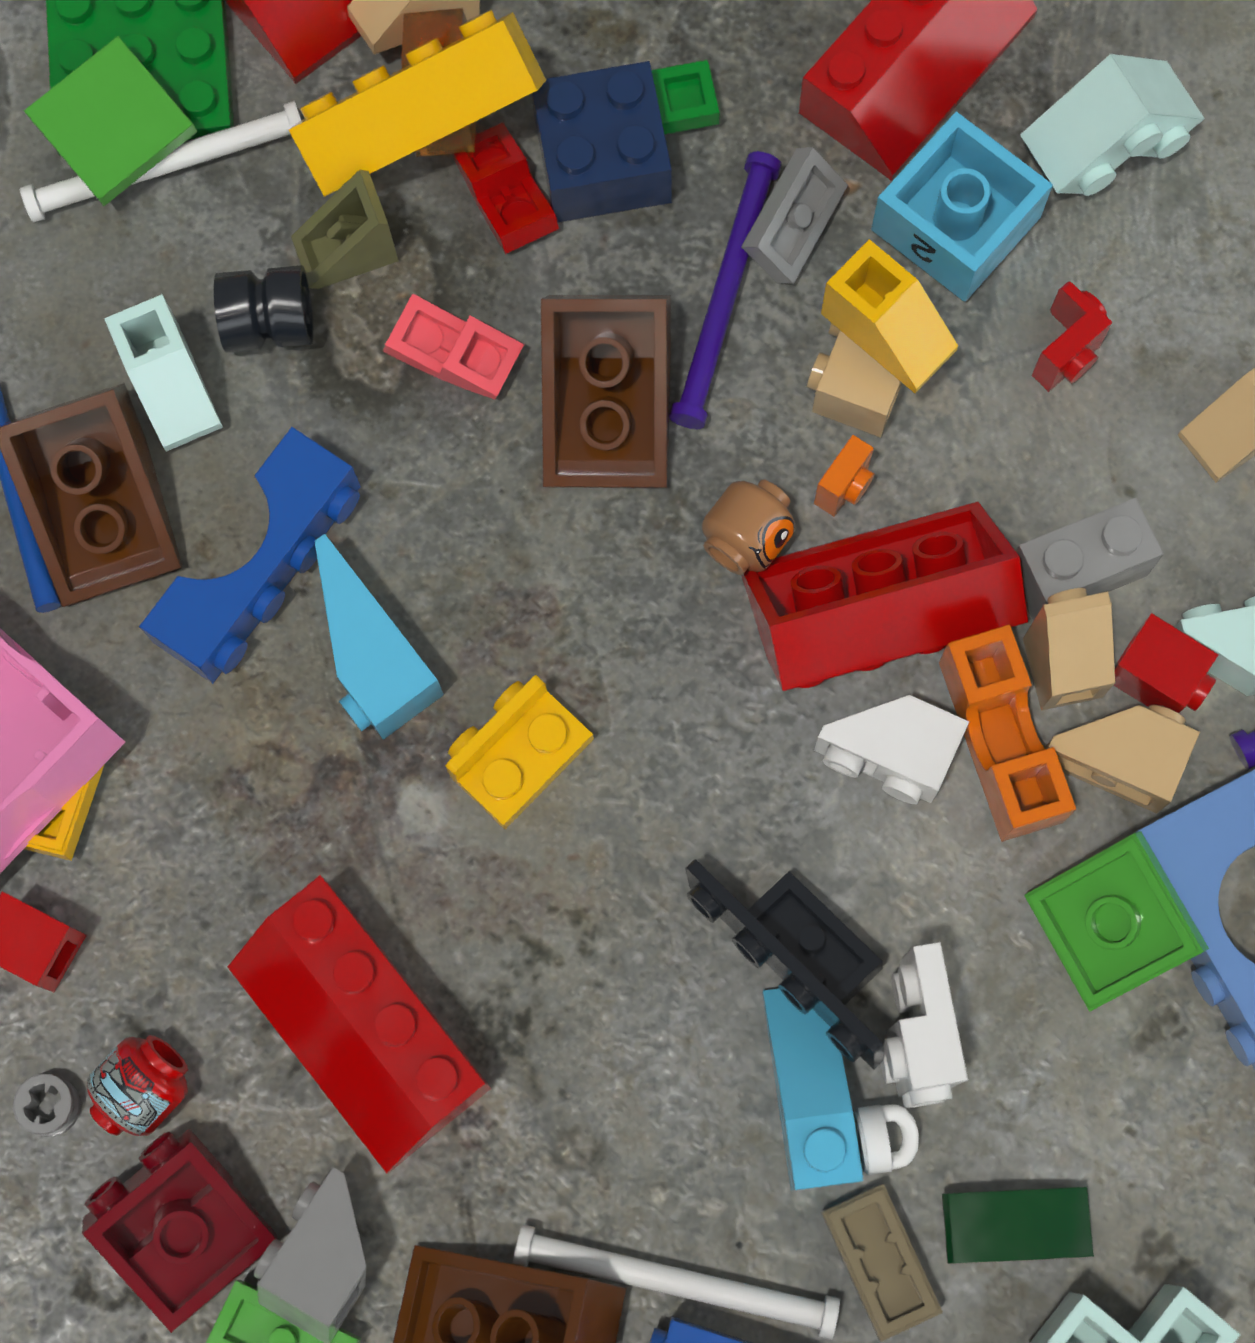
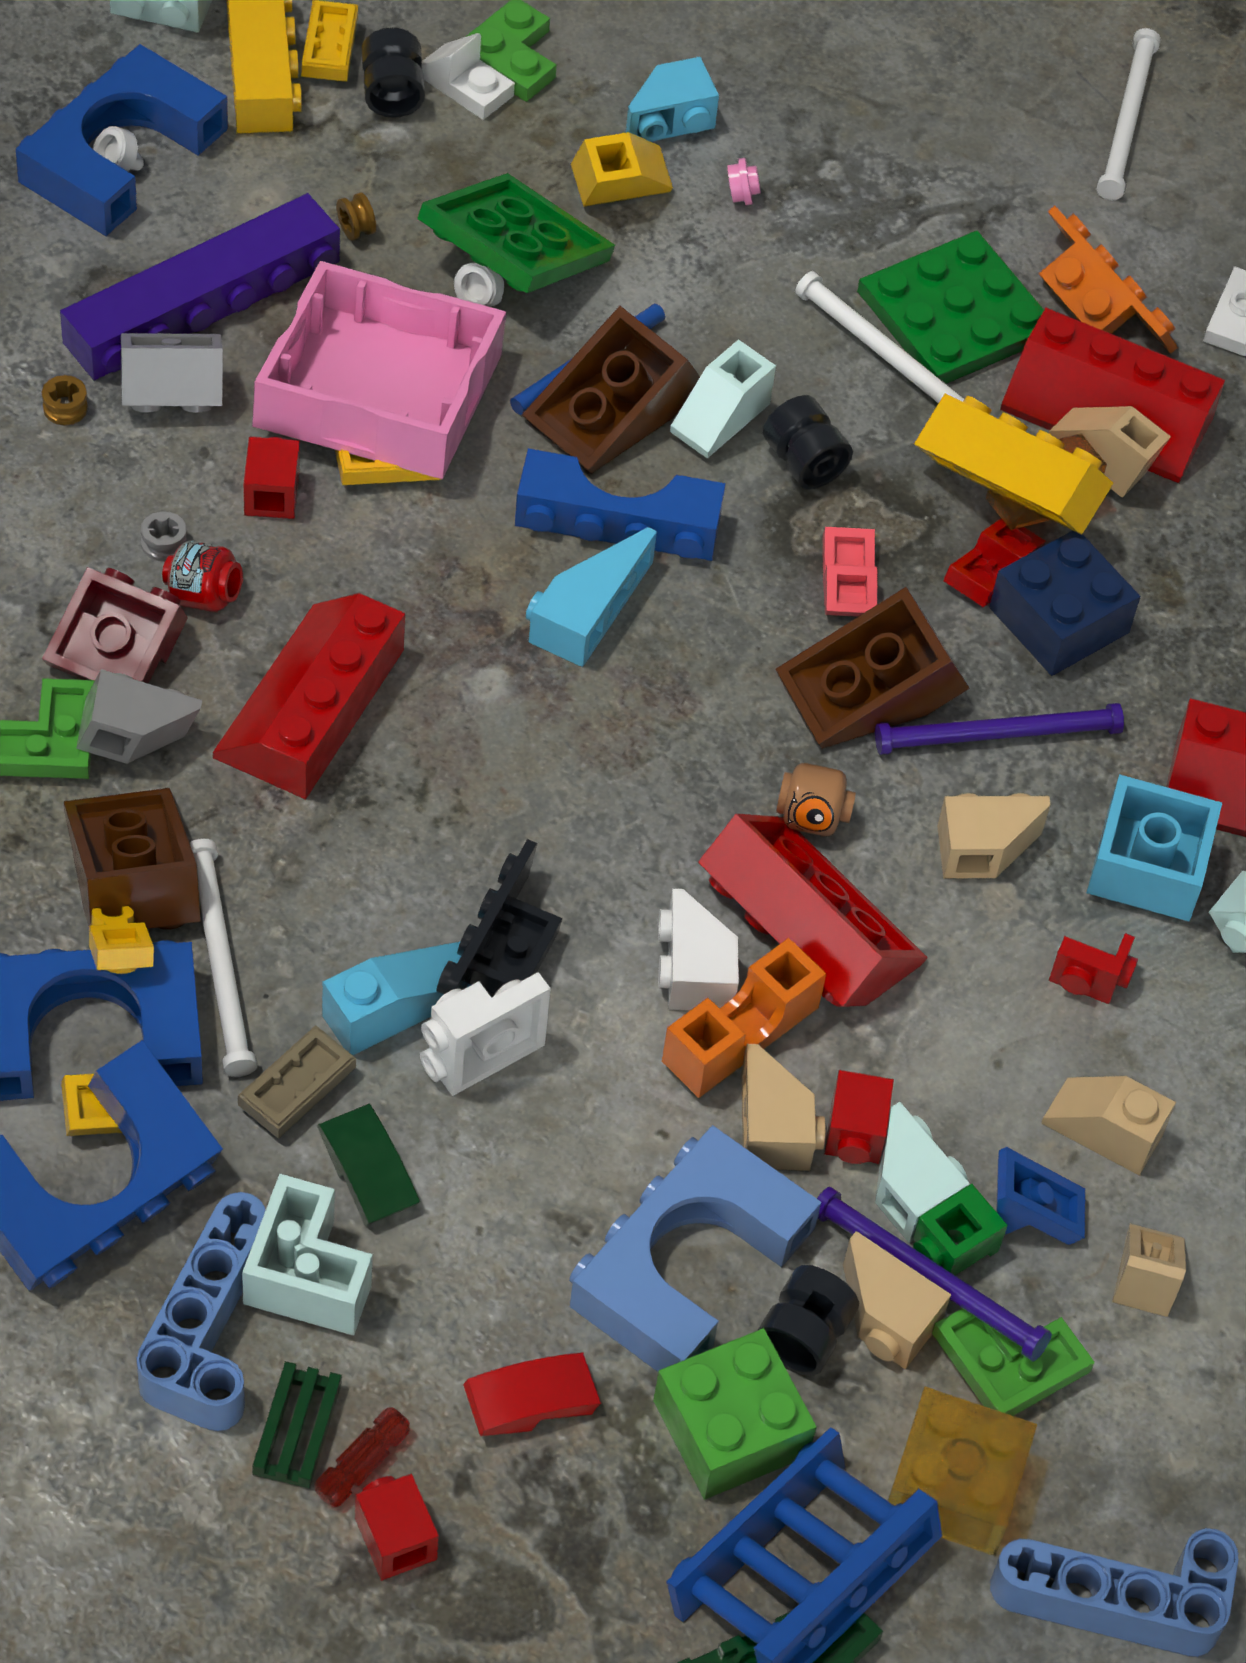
camera: 55 degrees right, 20 degrees down
(110, 121) = (893, 299): bright green tile -> none
(345, 235) = (898, 476): olive slope -> none
(517, 750) = (563, 718): yellow bracket -> none
(686, 97) = (1137, 646): green plate -> none
(794, 215) = (1083, 748): light grey plate -> none
(846, 477) = (892, 850): orange plate -> none
(874, 1138) = (388, 1042): white tile -> none
(888, 316) = (1021, 804): yellow slope -> none
(1071, 648) = (834, 1036): tan slope -> none
(1089, 554) = (915, 1032): light grey brick -> none
(1116, 921) = (636, 1144): bright green tile -> none

